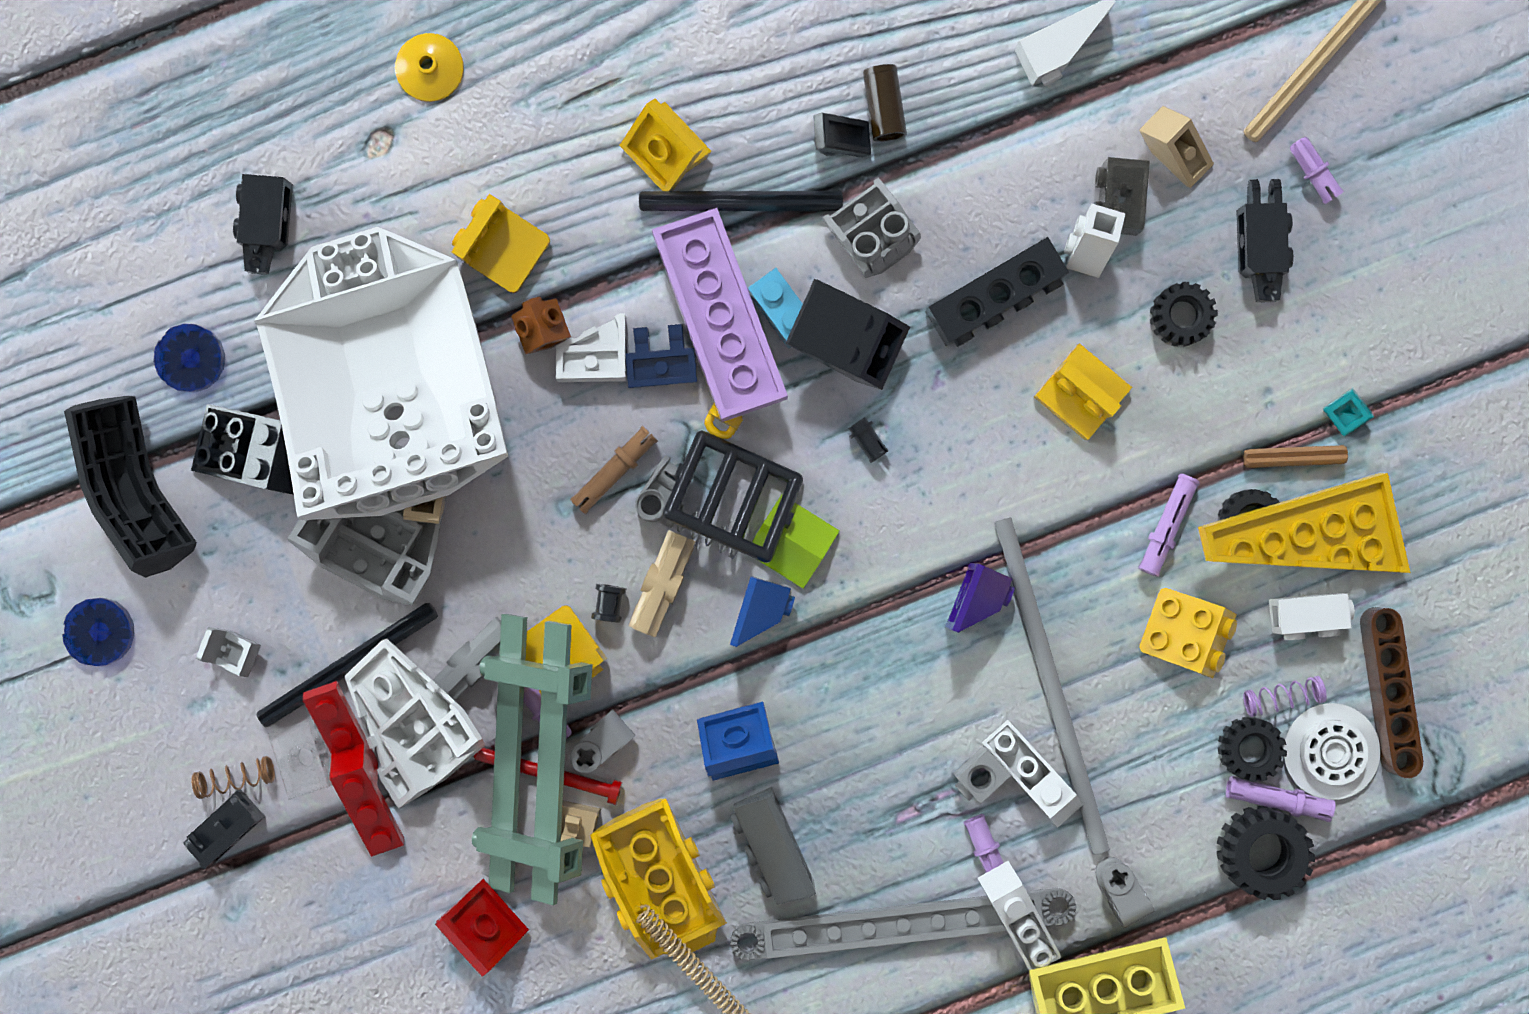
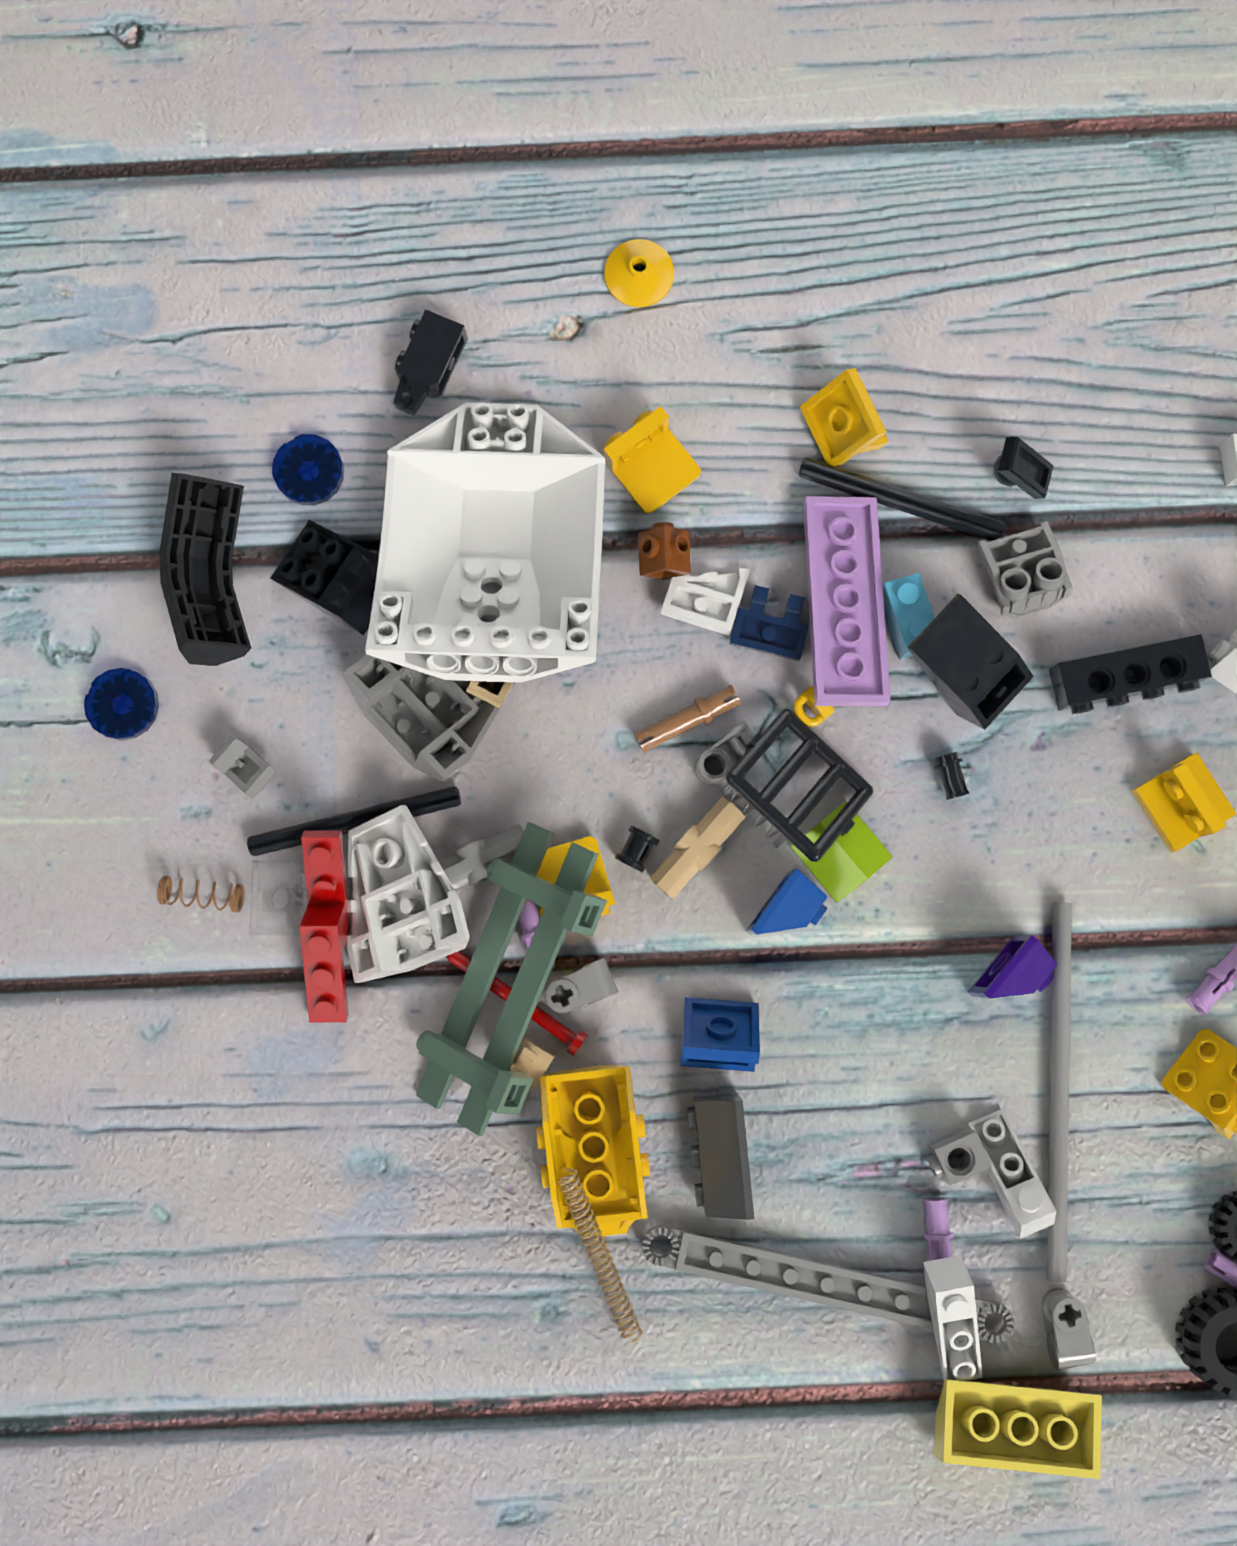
camera: 20 degrees right, 5 degrees down
(223, 829) = (172, 942): black hinge -> none
(482, 927) = (396, 1134): red bracket -> none
(884, 102) = (1076, 452): dark brown pin -> none

